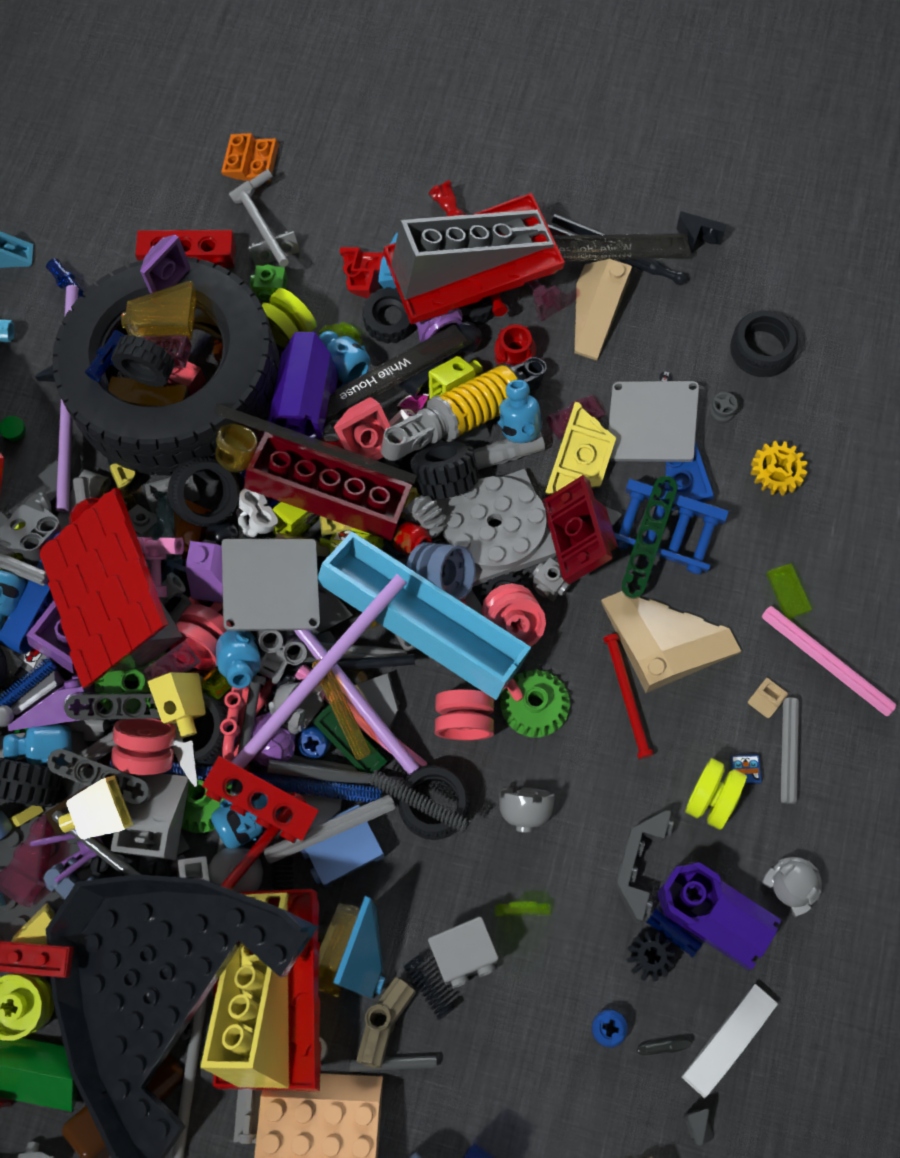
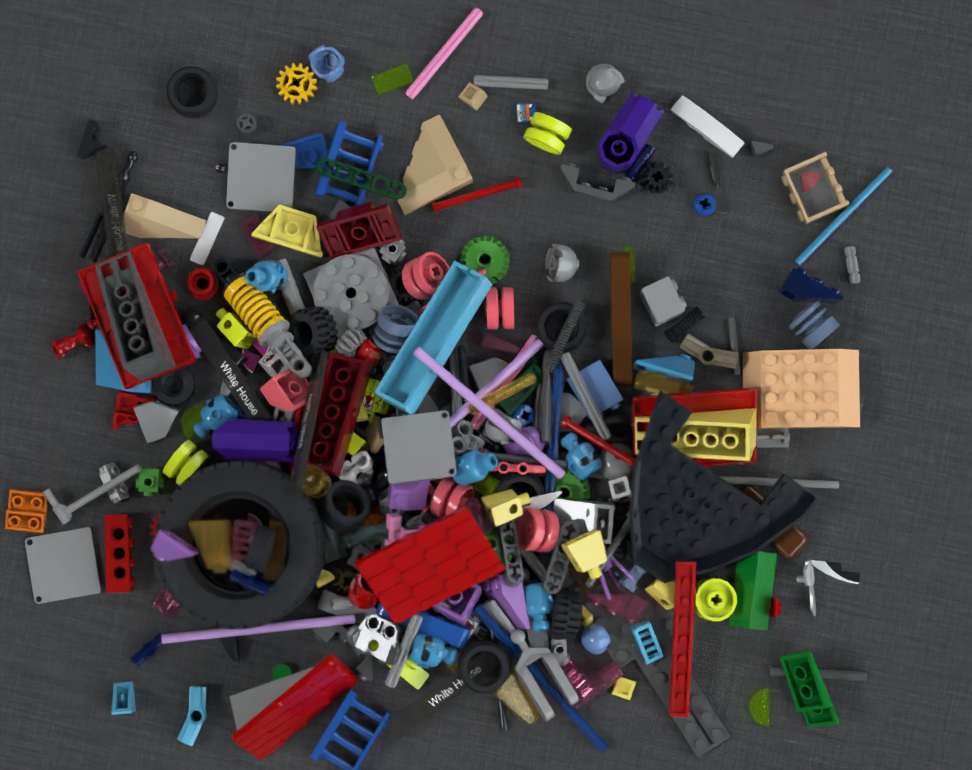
camera: 95 degrees left, 15 degrees up
(181, 194) = (63, 565): none -> light grey piece
(226, 771) = (556, 467): red brick -> none
(346, 291) = (155, 419): none -> light grey slope
(418, 707) = (494, 343): none -> clear pink slope
(444, 887) = (621, 317): none -> reddish brown beam
(574, 361) = (207, 238): none -> white sticker
(808, 504) = (327, 63): none -> medium blue hair

